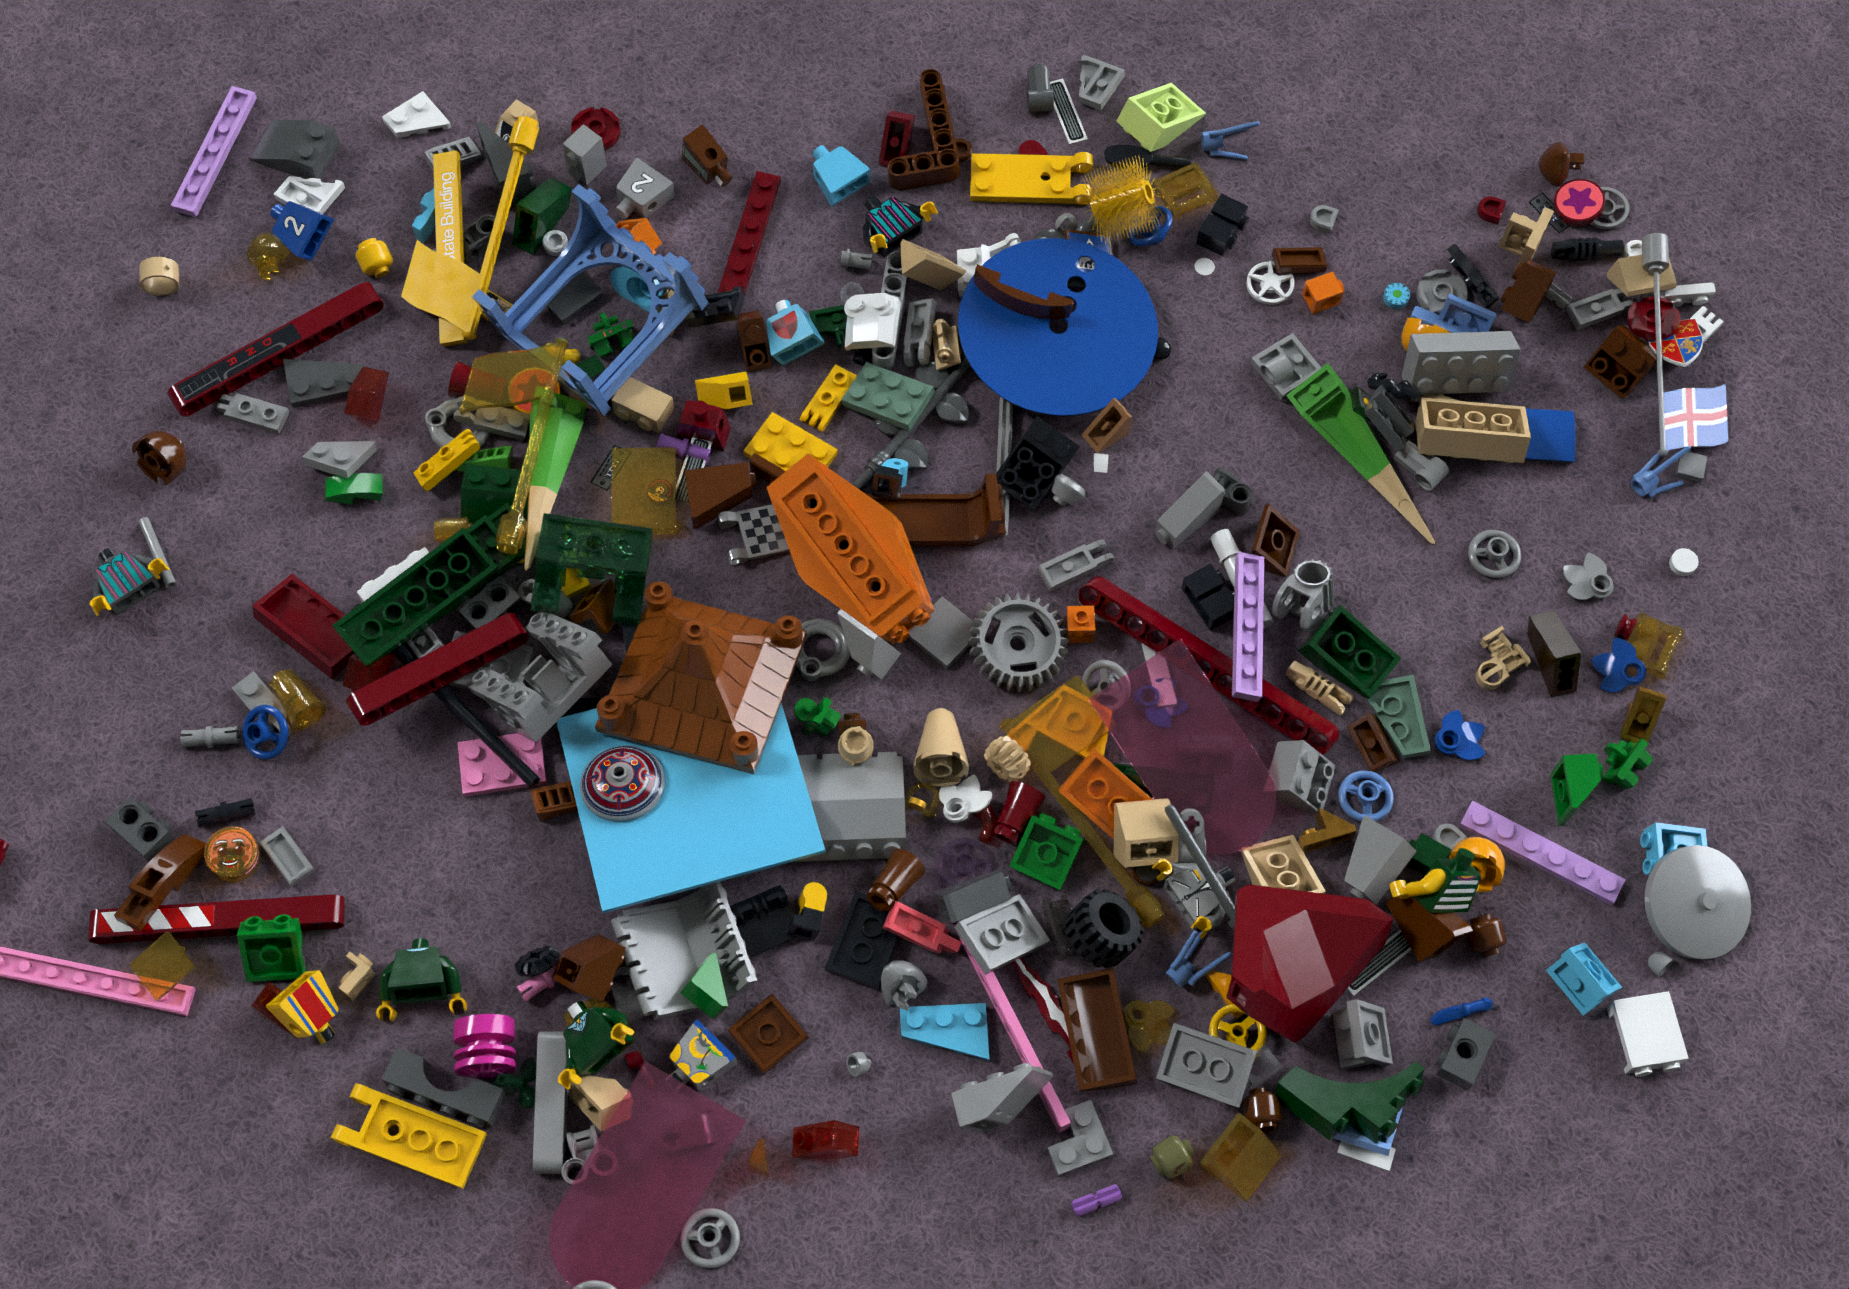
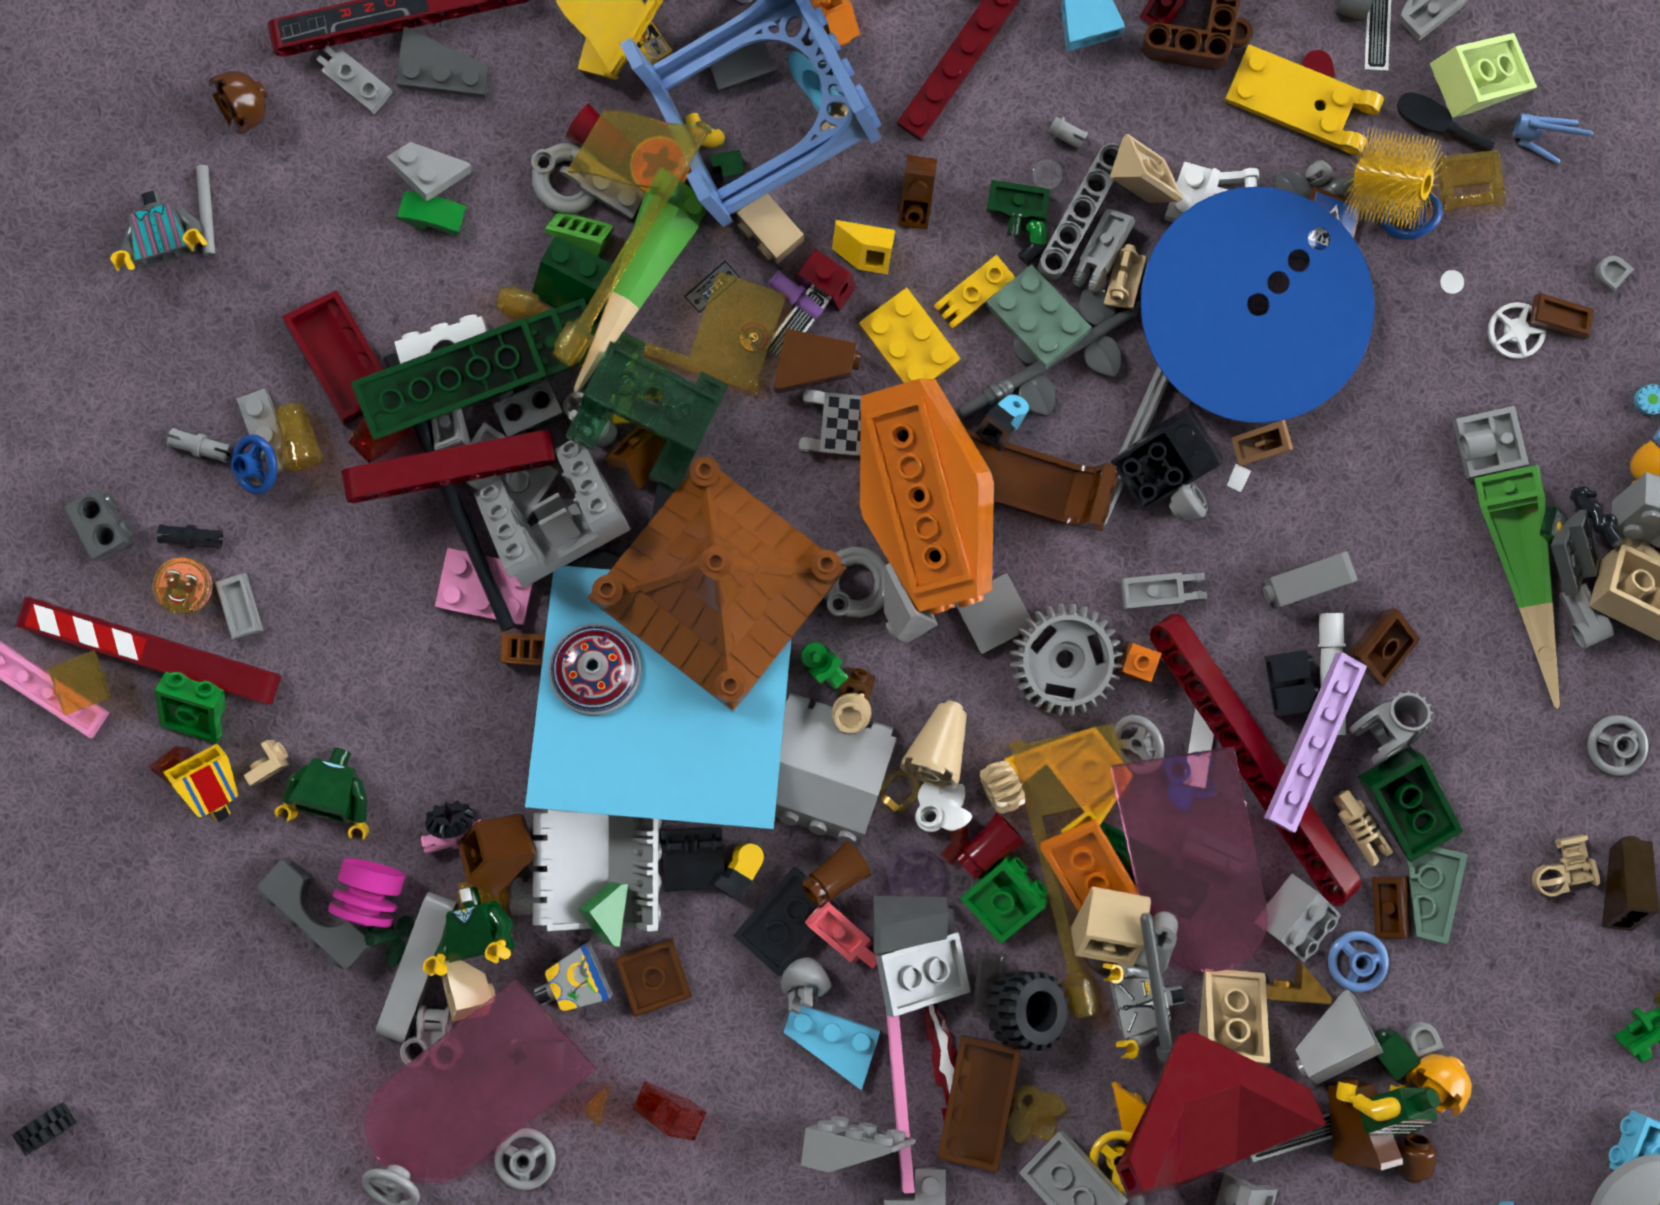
camera: 25 degrees right, 20 degrees up
(156, 880) = (100, 590): reddish brown slope -> none
(367, 394) = (478, 107): clear red slope -> none
(424, 1141) = (283, 957): yellow hinge -> none
(447, 460) = (538, 218): yellow hinge -> none
(600, 340) = (751, 131): green hips -> none
(634, 1060) = (516, 957): dark red hand -> none
(721, 308) = (894, 147): black plate -> none
(765, 469) = (879, 362): reddish brown tile -> none
(791, 333) = (962, 200): medium azure torso -> none
(858, 1063) = (730, 1044): light grey hinge -> none
(871, 321) = (1053, 224): white slope -> none
(892, 221) = (1125, 103): torso -> none
(1019, 301) = (1260, 284): reddish brown slope -> none
(1163, 349) = (1363, 370): black hinge -> none
(1181, 970) = (1090, 1076): medium blue plant -> none
(1220, 229) = (1495, 240): black piece -> none
(1233, 489) = (1365, 564): dark grey piece -> none
(1323, 292) = (1570, 367): orange brick -> none
(1463, 737) = (1489, 936): blue plate -> none
(1542, 853) = (1513, 1091): lavender plate -> none
(1573, 782) = (1581, 1045): green slope -> none

